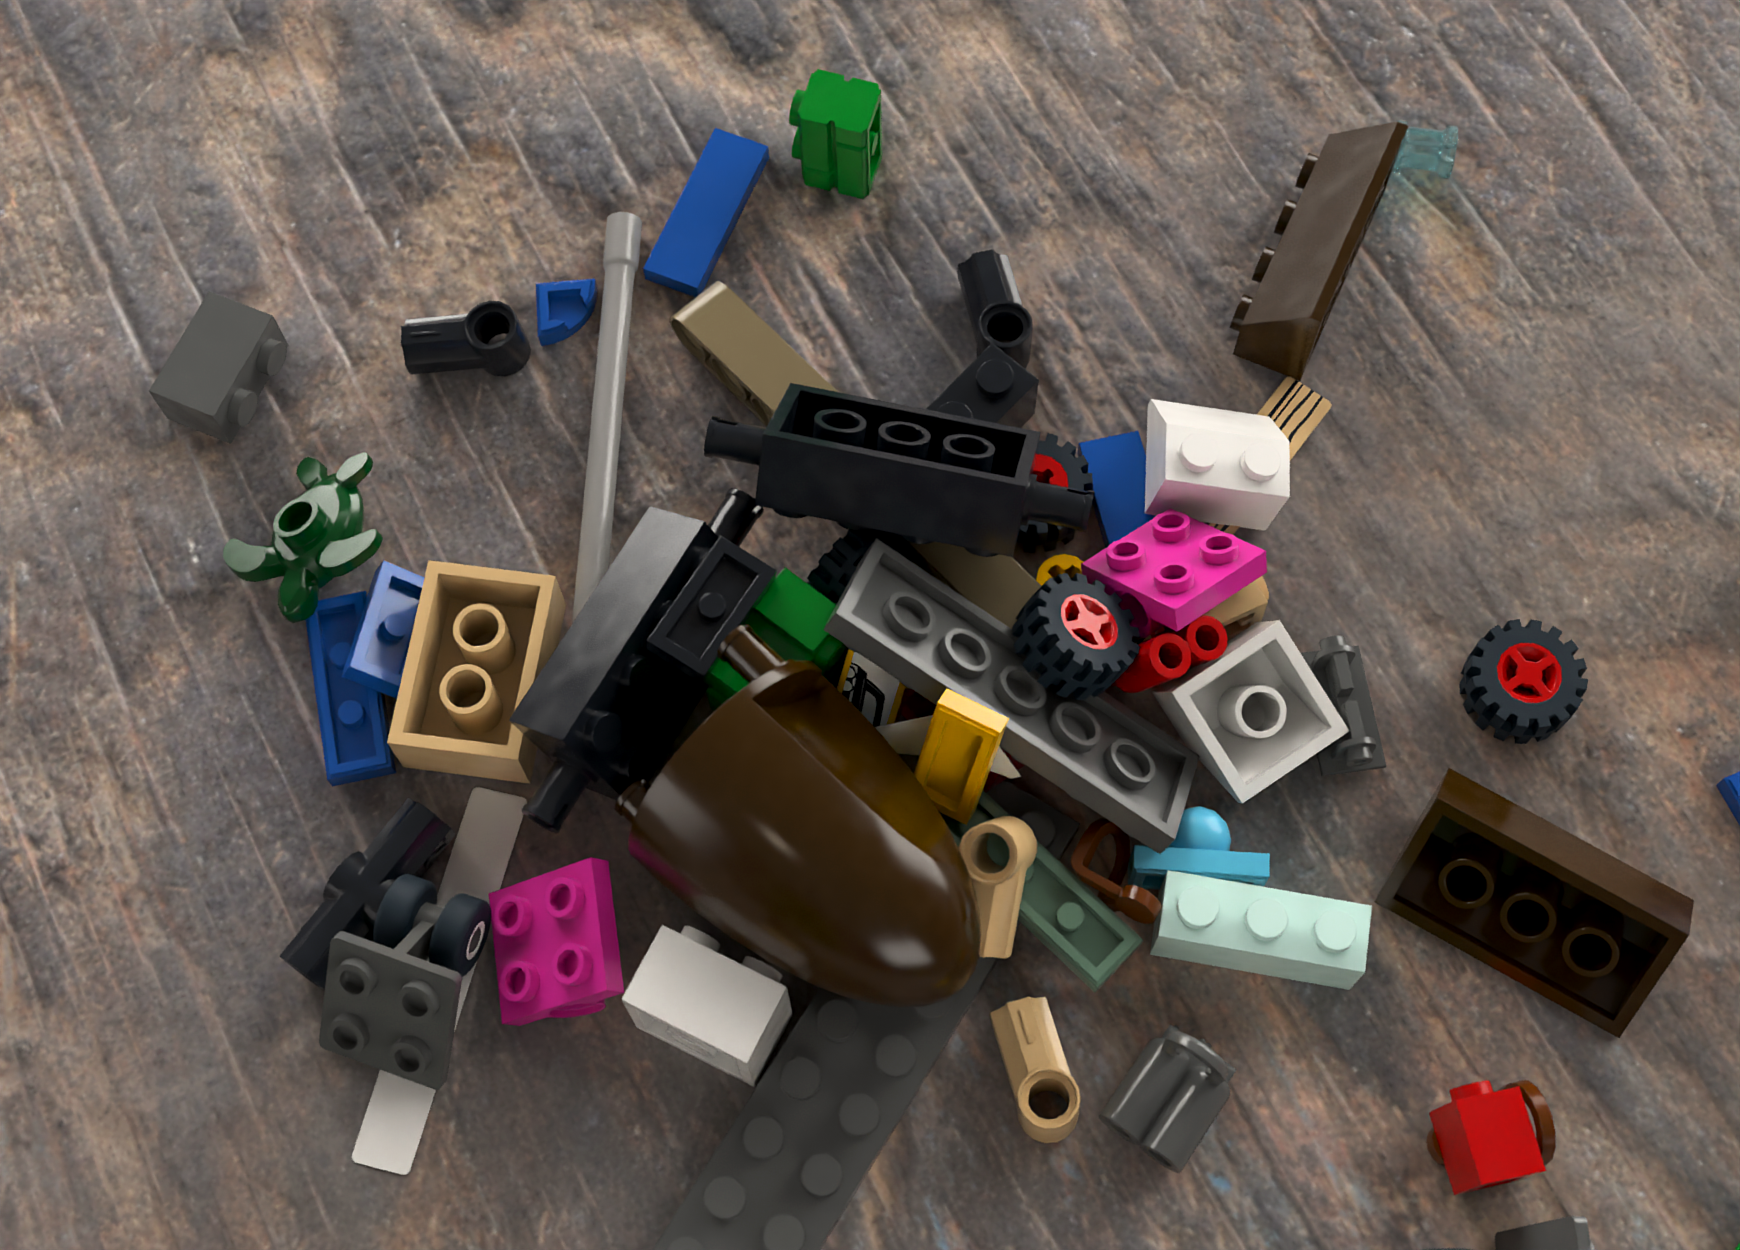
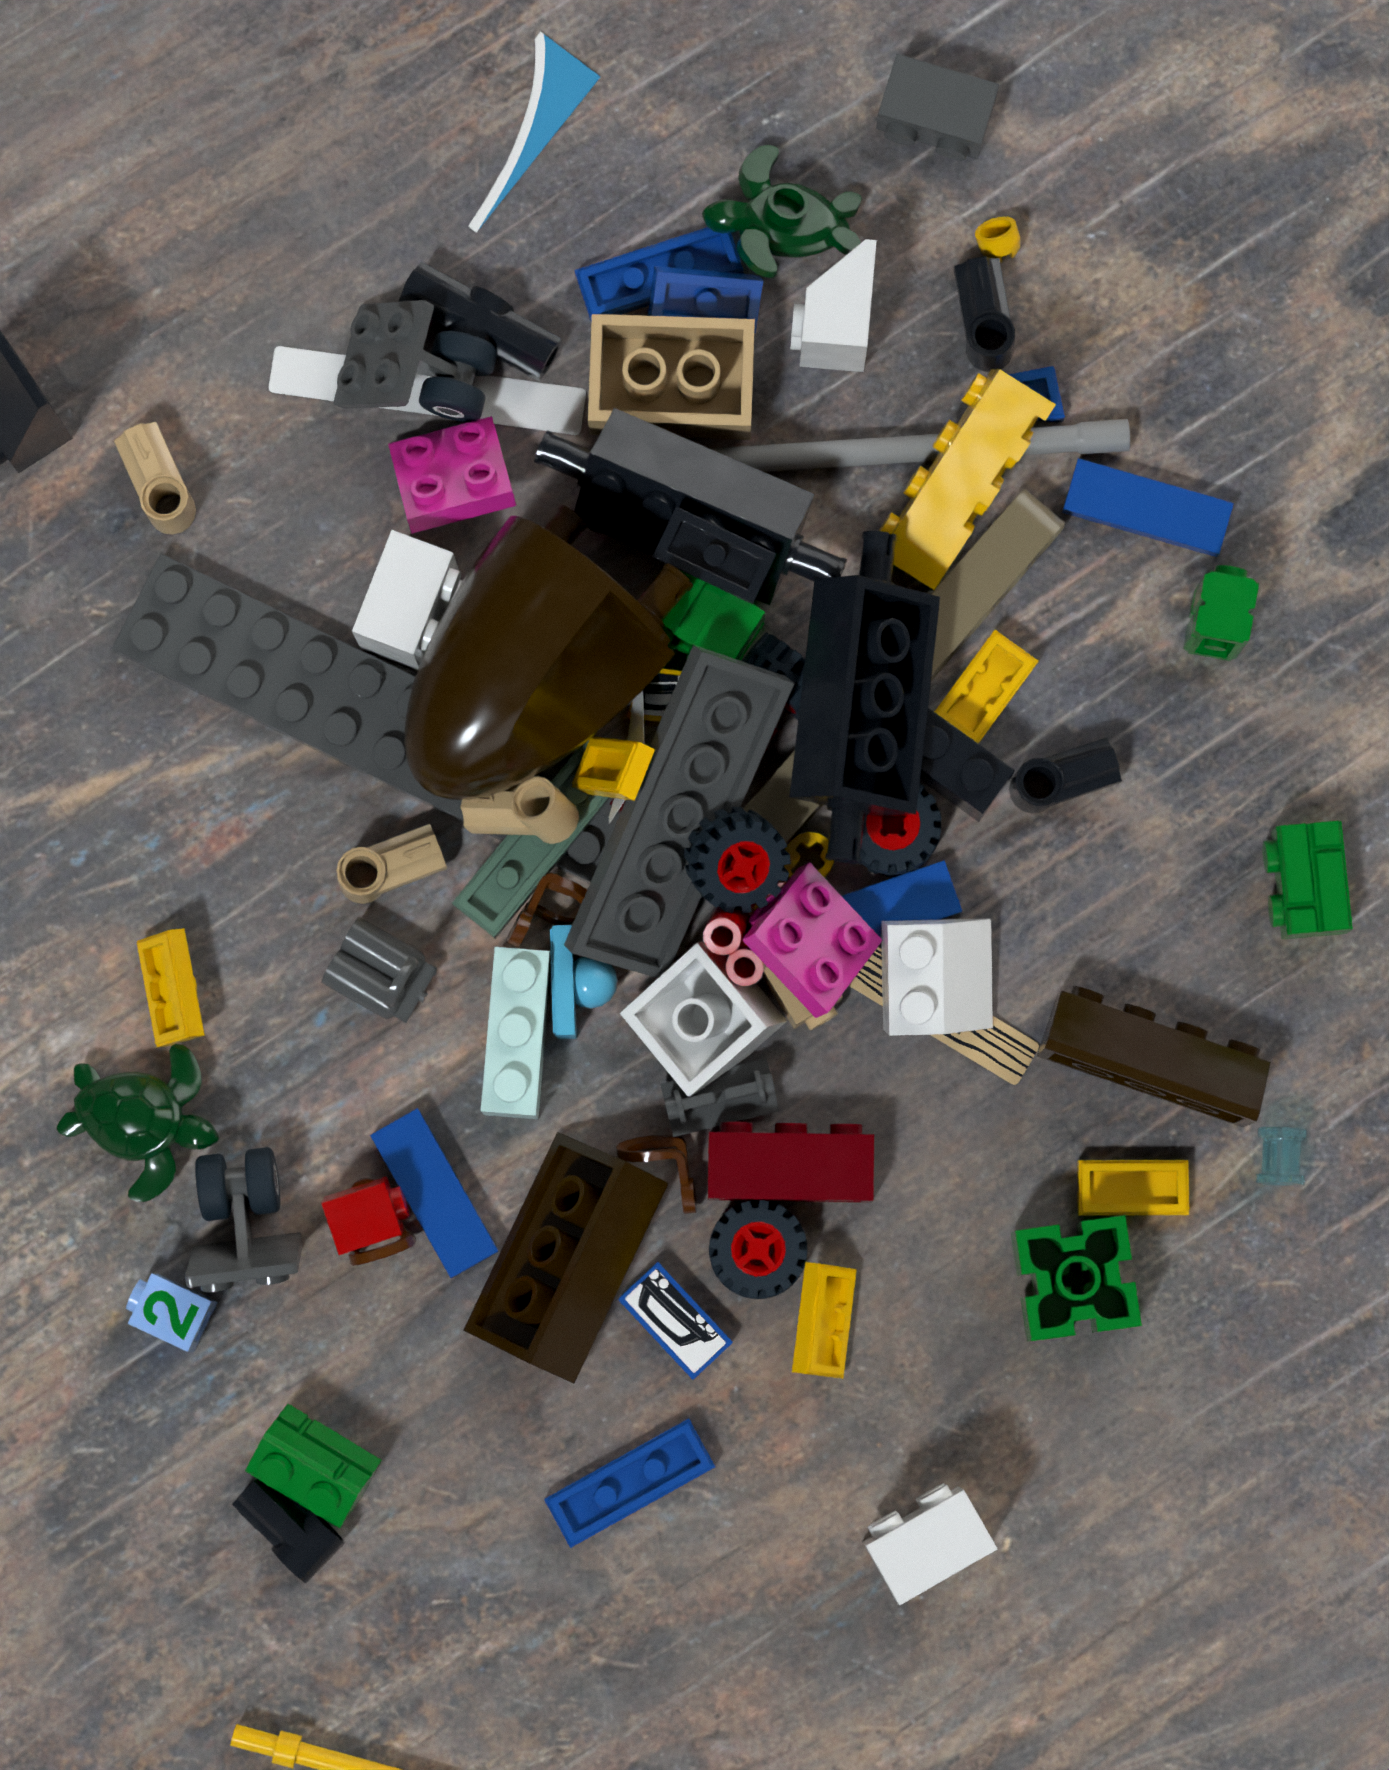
camera: 85 degrees right, 15 degrees up
(107, 786) = (557, 90): none -> dark azure sticker
(381, 322) = (998, 238): none -> yellow hinge
(442, 473) = (836, 314): none -> white slope
(638, 354) = (964, 474): none -> yellow wedge
(878, 371) = (986, 686): none -> yellow plate
(1129, 94) = (1309, 880): none -> green brick
(1426, 635) = (791, 1164): none -> dark red brick
(1448, 754) = (628, 1152): none -> reddish brown piece
(1449, 1055) = (434, 1193): none -> blue tile
(1450, 297) = (1132, 1187): none -> yellow tile
(1563, 345) = (1102, 1300): none -> green brick
(1605, 783) = (675, 1320): none -> tile
(1607, 616) = (824, 1320): none -> yellow plate

